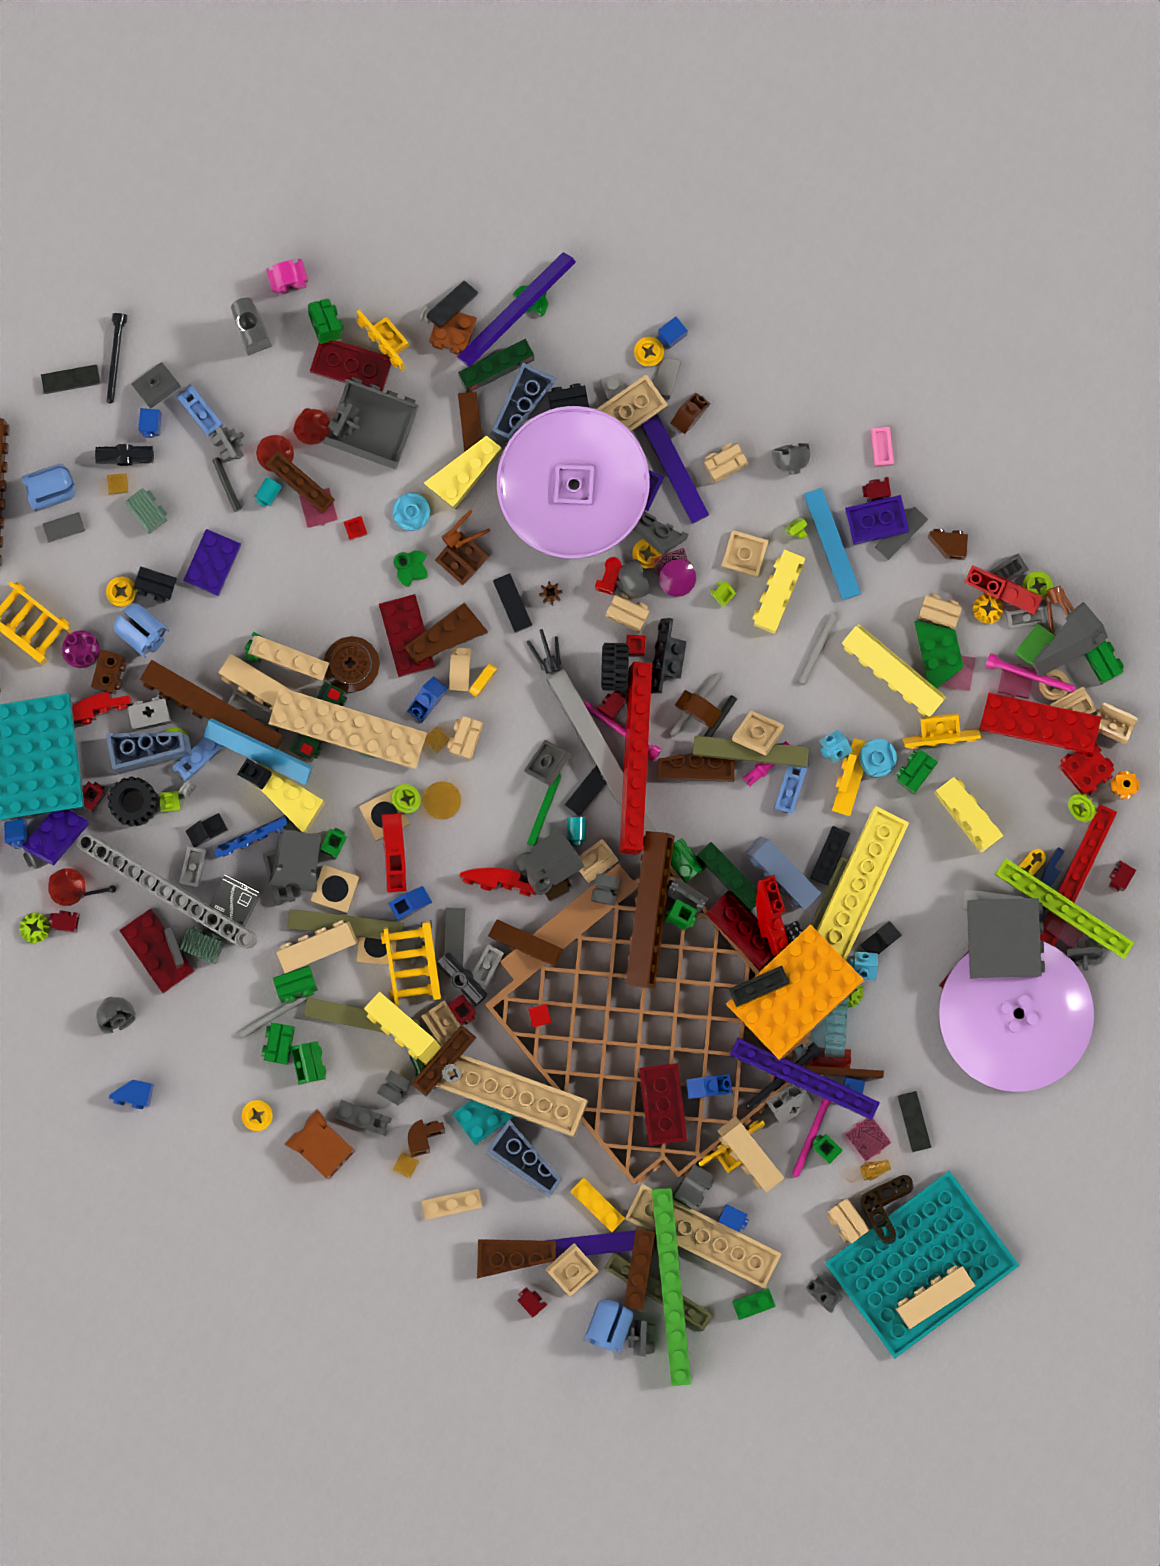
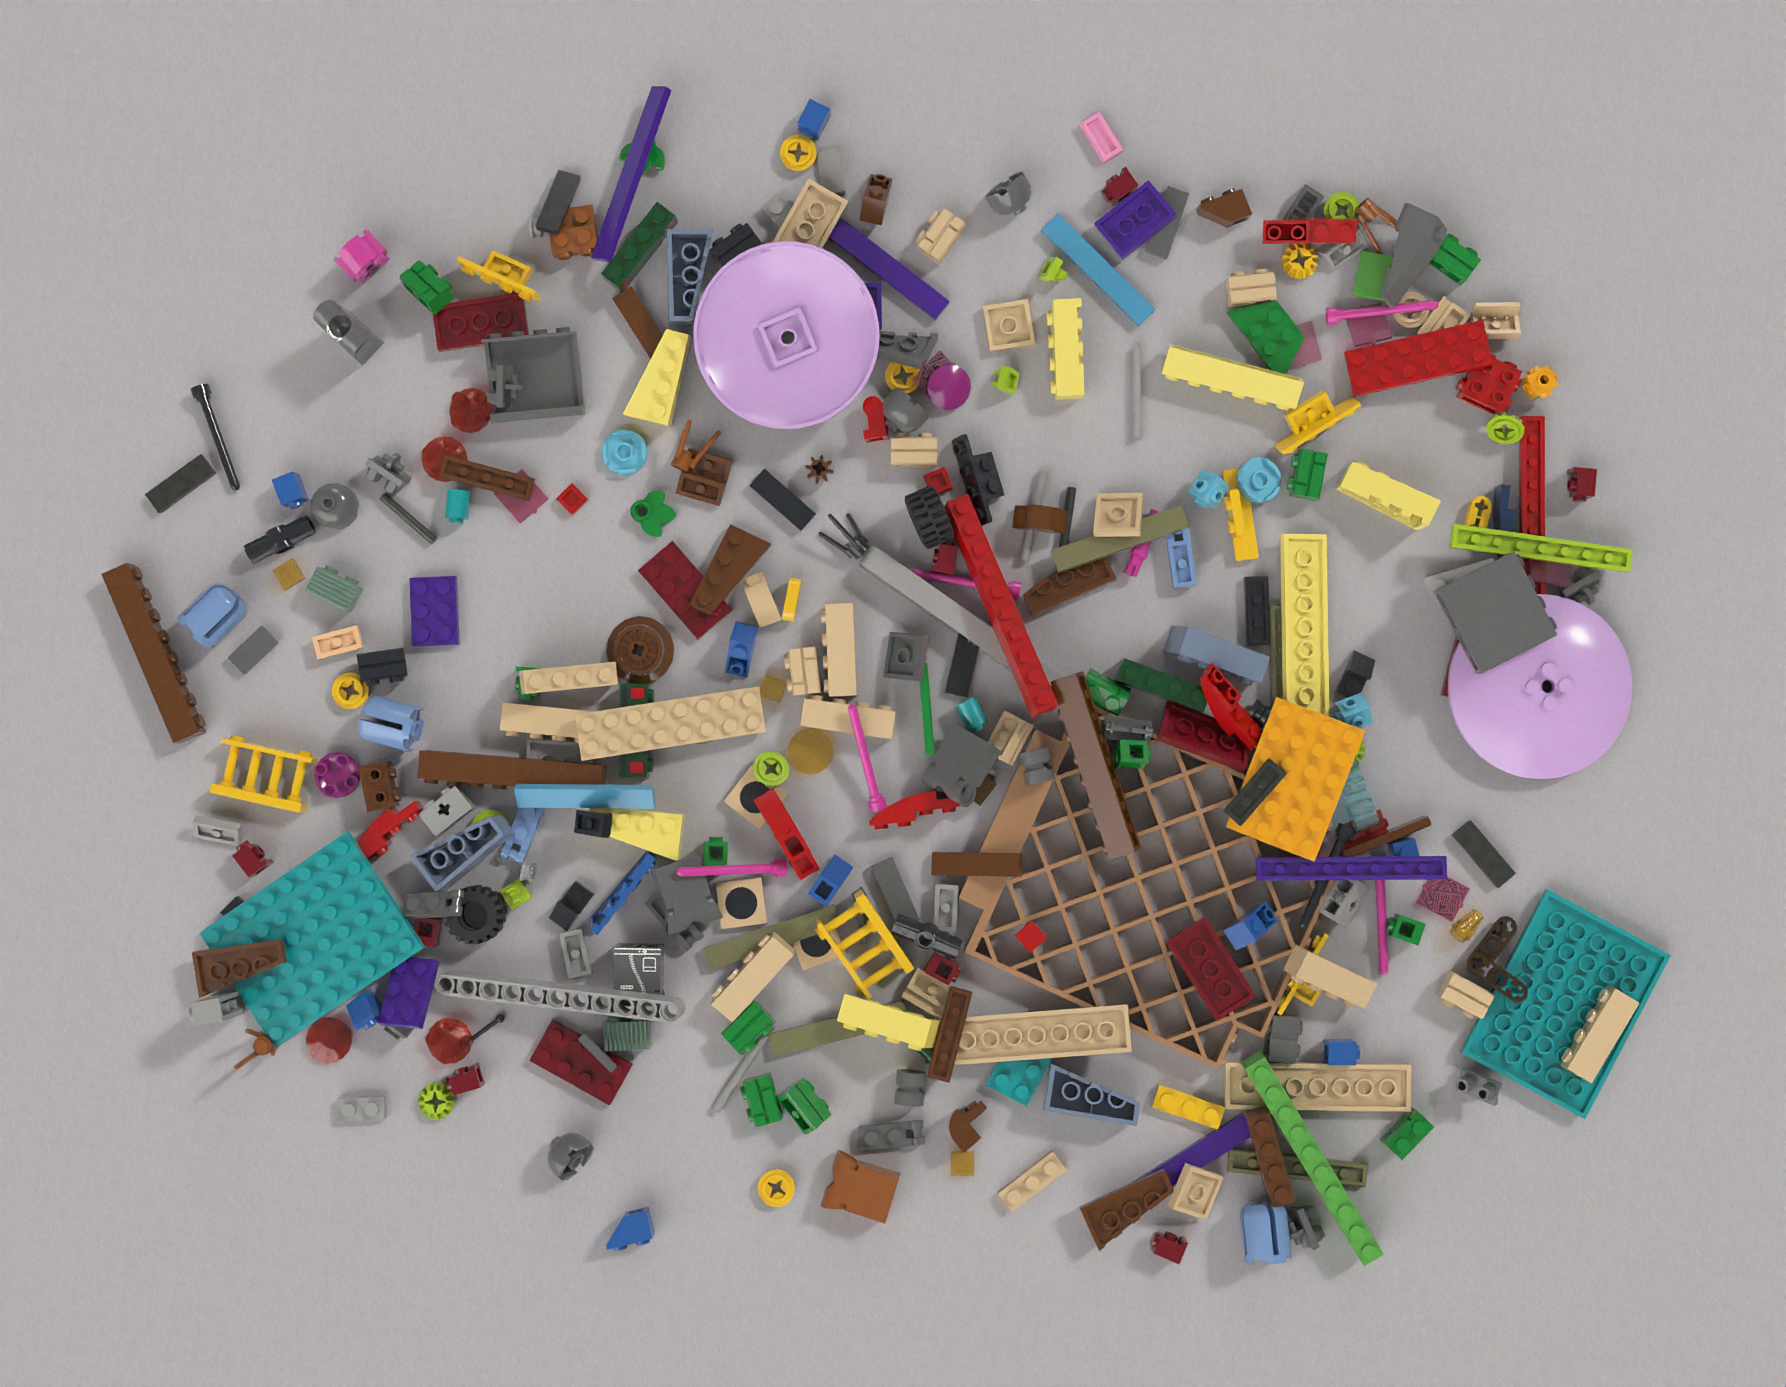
camera: 25 degrees left, 5 degrees up
(106, 778) = (433, 904): none -> dark grey plate
(129, 551) = (338, 642): none -> light nougat plate
(156, 385) = (276, 446): dark grey plate -> none
(176, 449) = (334, 506): none -> dark grey cylinder
(199, 410) = (339, 451): medium blue plate -> none
(374, 875) = (777, 867): none -> dark pink piece
(451, 1067) = (961, 1040): light grey bush -> none
(473, 860) = (876, 801): none -> dark pink piece
(482, 789) = (835, 717): none -> tan brick
(501, 734) = (840, 650): none -> tan brick

